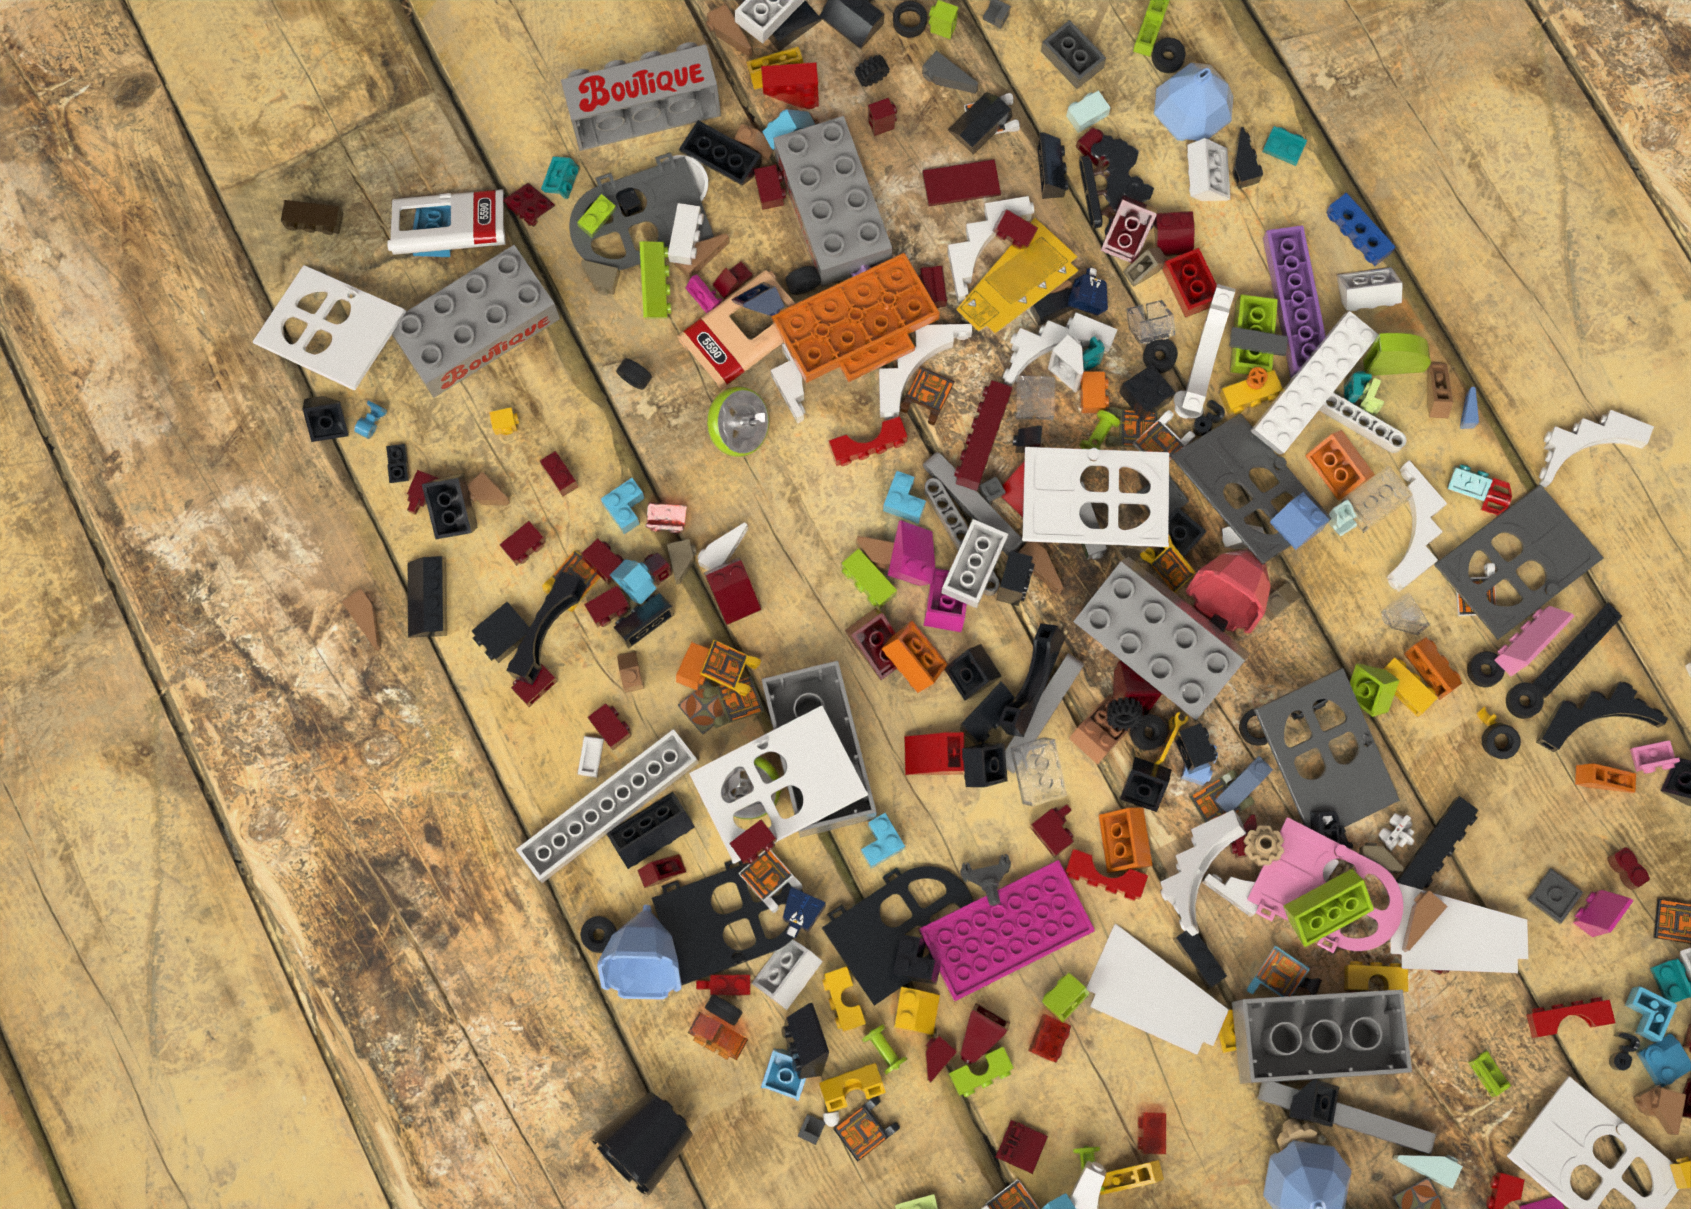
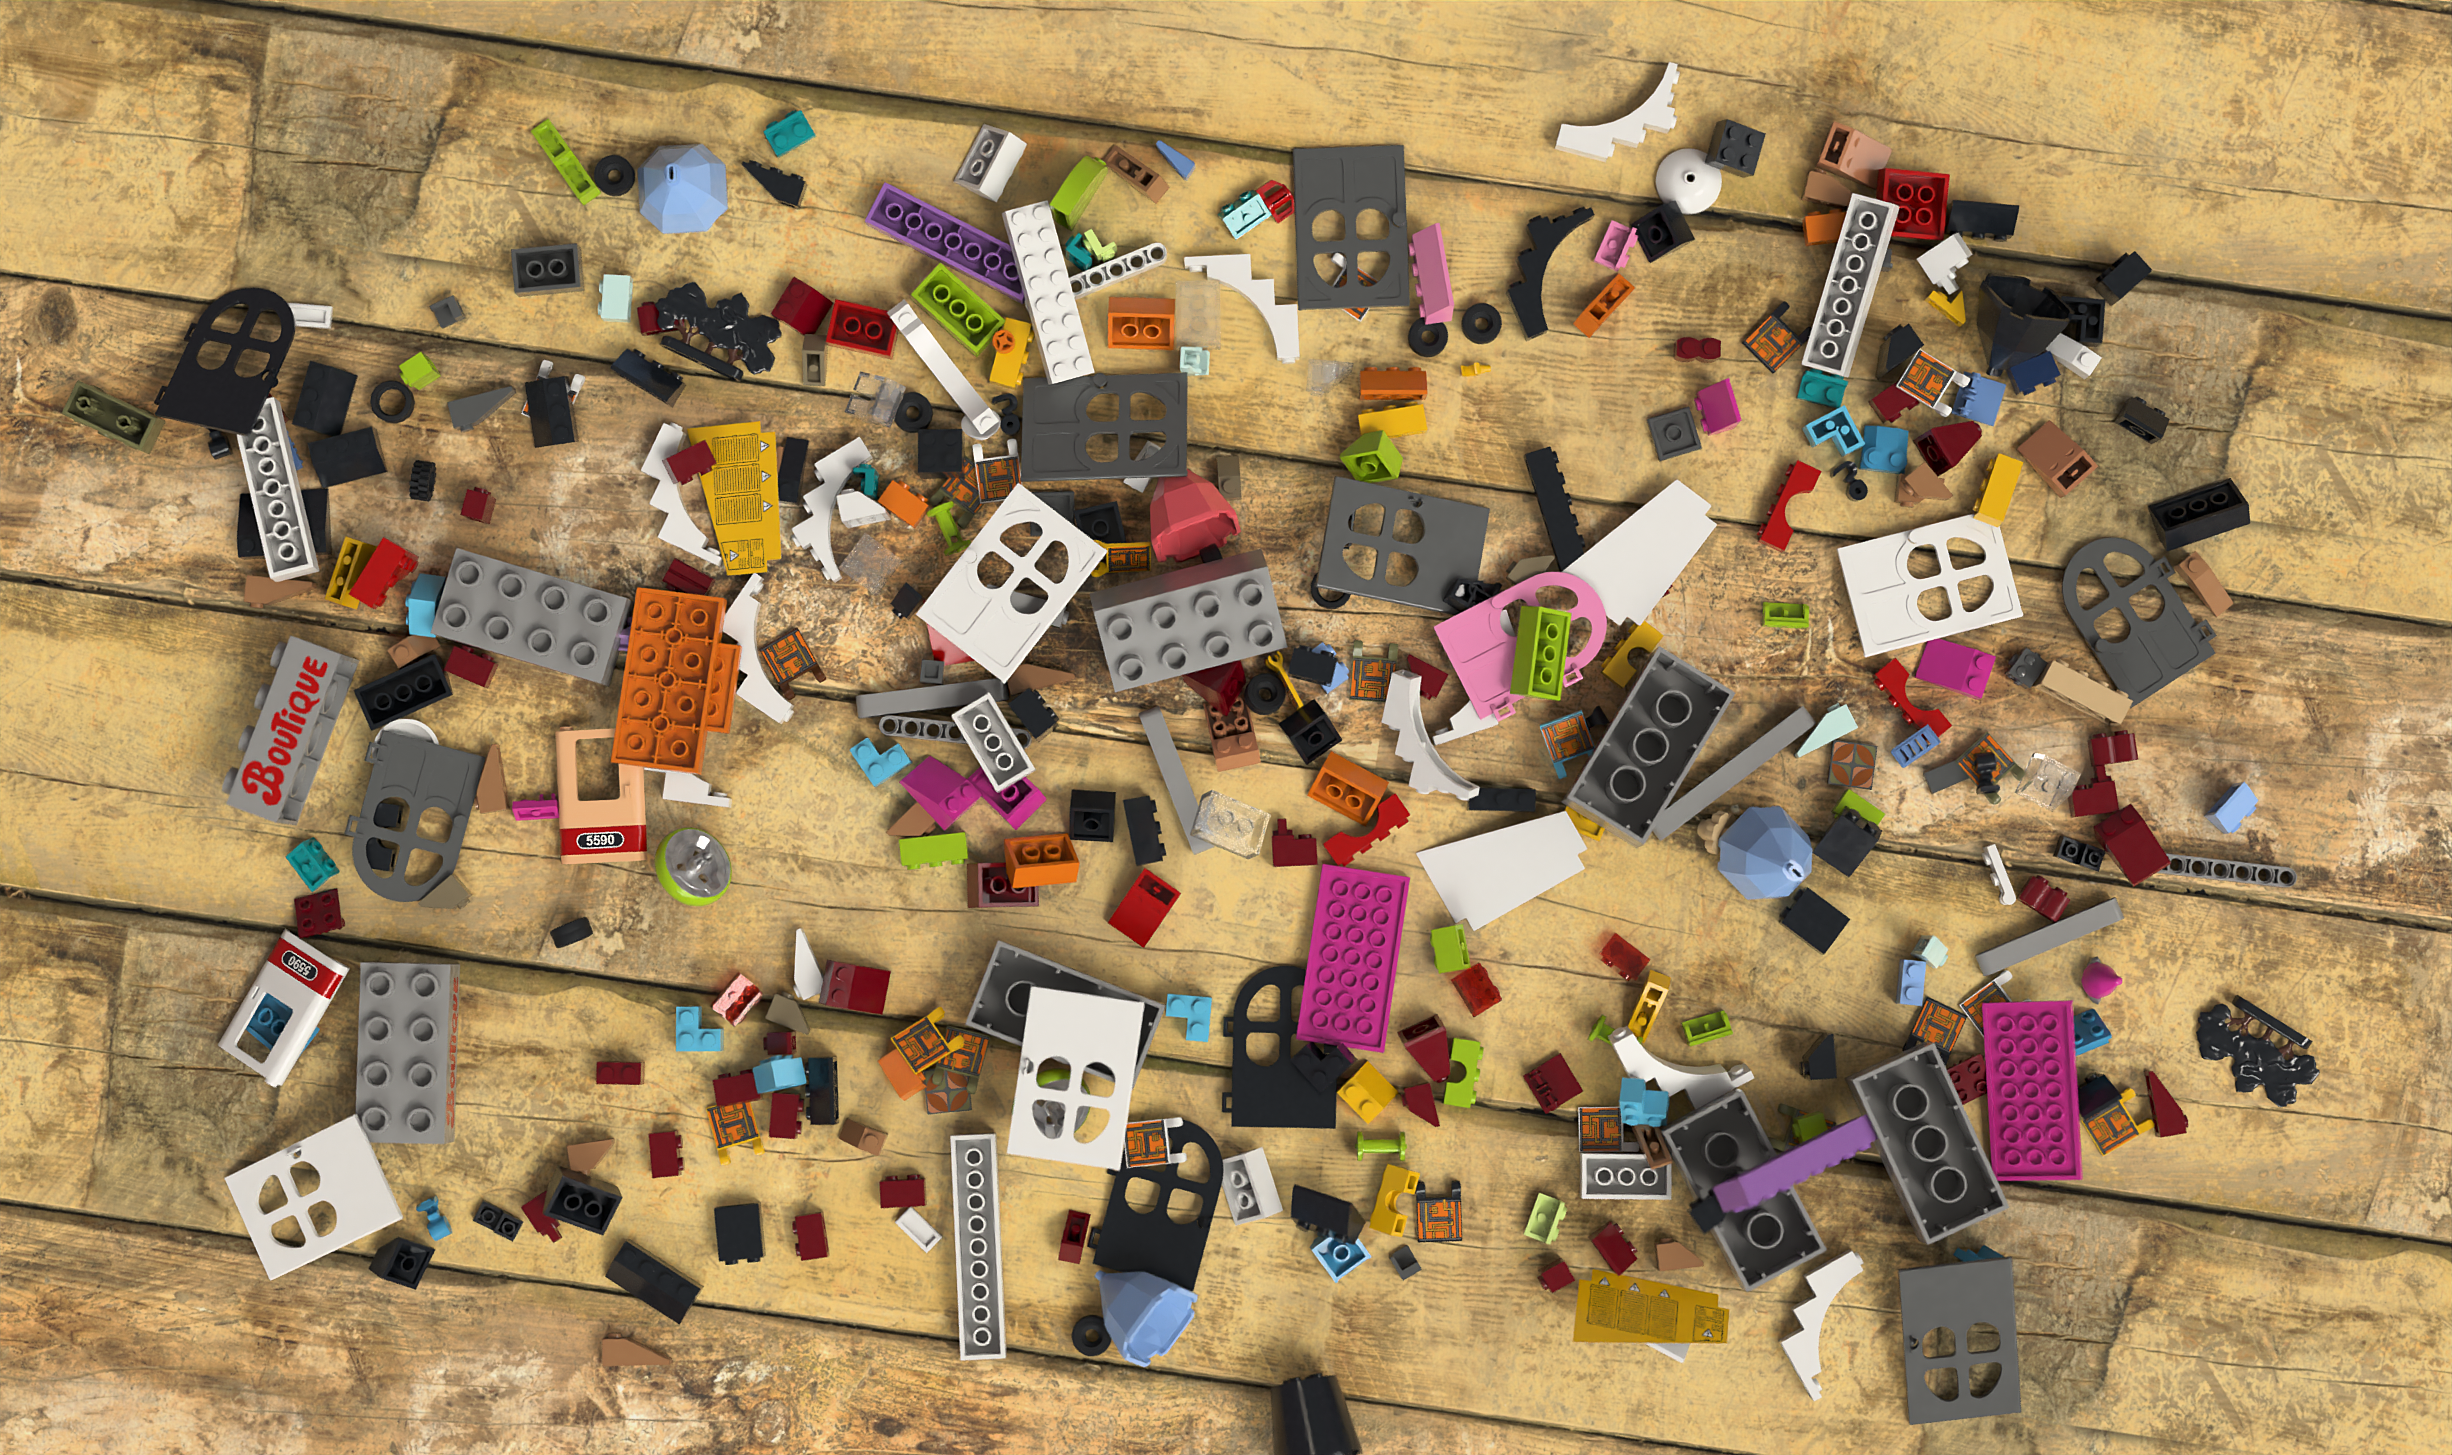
camera: 55 degrees left, 10 degrees up
(311, 217) = (180, 1138): dark brown brick -> none
(504, 421) = (529, 1089): yellow brick -> none
(564, 594) = (746, 1148): black arch -> none
(596, 216) = (386, 860): lime brick -> none
(650, 830) = (1028, 1221): black slope -> none
(654, 280) = (491, 848): lime slope -> none
(685, 234) = (465, 785): white brick -> none
(717, 1037) = (1263, 1291): clear orange brick -> none
(723, 1009) = (1242, 1268): black tyre -> none
(726, 985) = (1221, 1249): red plate -> none
(732, 279) = (540, 769): dark red slope -> none
(753, 842) = (1113, 1139): dark red brick -> none
(761, 298) = (587, 762): dark blue slope -> none
(801, 911) = (1204, 1135): dark blue torso -> none
(803, 280) = (592, 702): black tyre -> none
(831, 1119) = (1408, 1238): white hinge -> none
(836, 983) = (1328, 1159): yellow arch -> none
(846, 450) = (792, 781): red arch -> none
(961, 183) = (600, 475): dark red tile -> none
(983, 436) = (872, 640): dark red brick -> none
(984, 765) = (1189, 870): black brick -> none
(987, 877) = (1294, 941): dark grey axle -> none
(1020, 710) = (1162, 800): black arch -> none
(1089, 293) = (803, 435): dark blue torso -> none
(1124, 714) = (1234, 707): black tyre -> none
(1129, 229) = (766, 349): slope -> none
(1208, 171) = (762, 227): white slope -> none
(1243, 784) = (1375, 643): sand blue slope -> none
(1256, 852) = (1441, 680): tan plant -> none
(1258, 341) = (969, 313): dark grey tile -> none
(1299, 521) = (1170, 409): medium blue slope -> none
(1315, 1103) = (1701, 794): black slope -> none
(1371, 233) = (915, 119): blue brick -> none
(1399, 834) = (1514, 525): white hips -> none
(1422, 916) = (1607, 571): medium nougat slope -> none
(1512, 745) = (1516, 375): black tyre -> none
(1577, 649) = (1470, 238): black plate -> none
(1611, 429) = (1290, 38): white arch -> none

